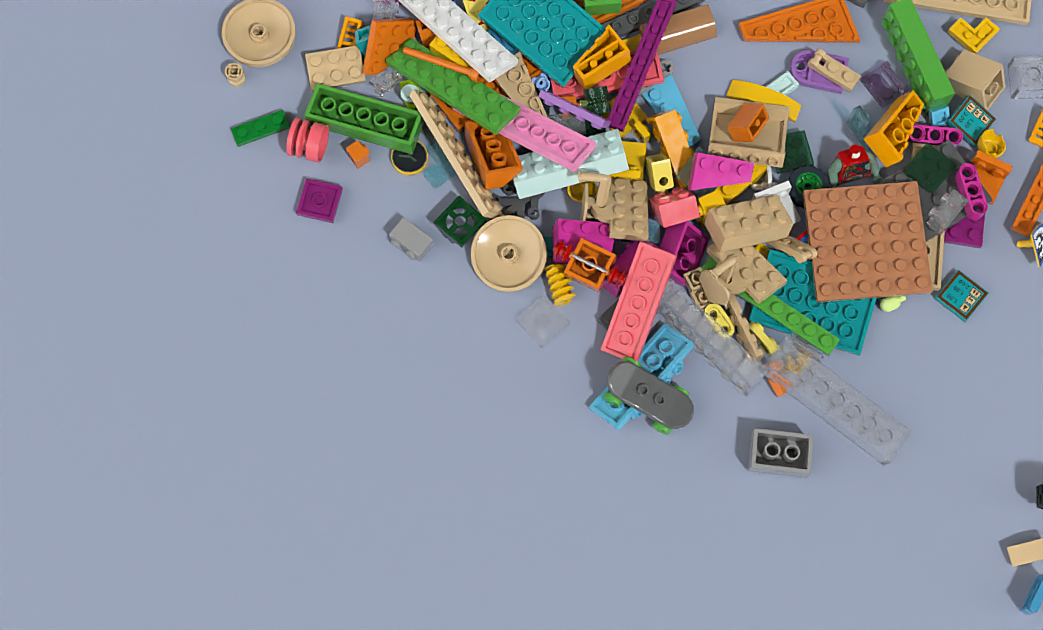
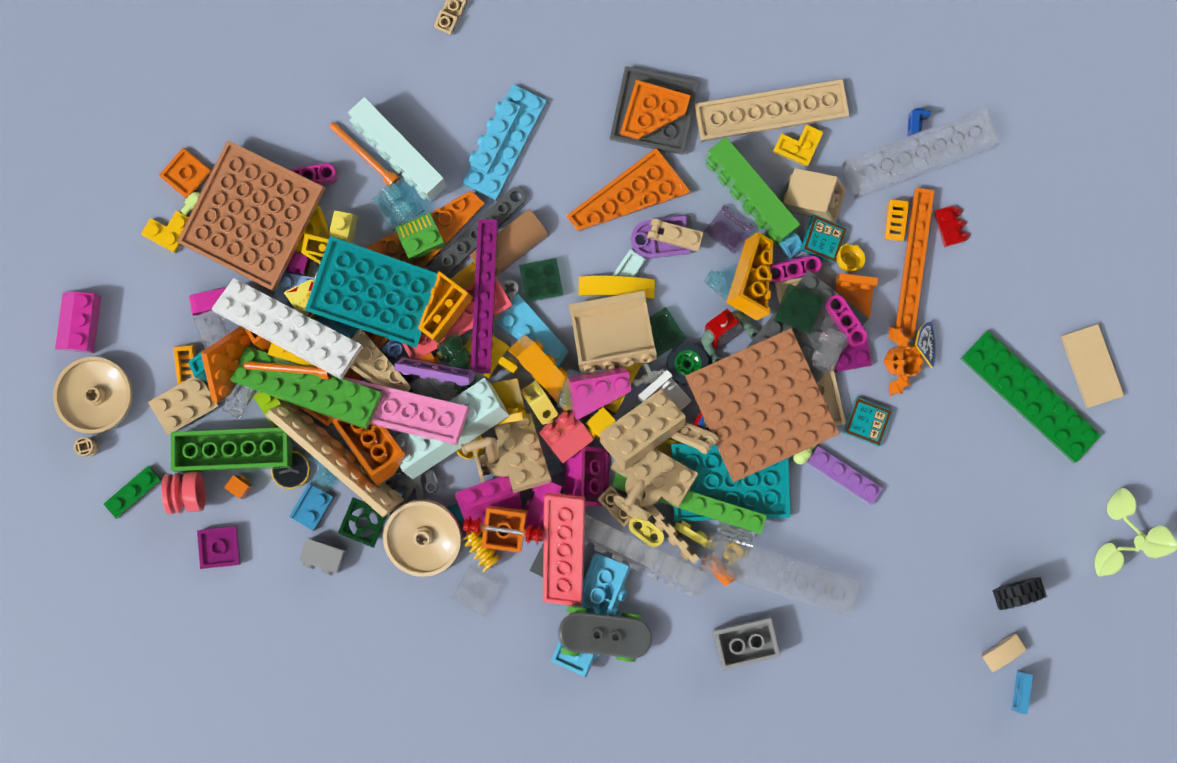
camera: 20 degrees left, 10 degrees up
(406, 90) = (265, 405): light aqua plate -> none
(416, 195) = (311, 507): none -> dark azure plate
(696, 70) = (541, 280): none -> clear green plate
(748, 122) = (609, 324): orange brick -> none
(924, 336) = (844, 475): none -> medium lavender plate
(1012, 249) = (901, 361): none -> orange helmet

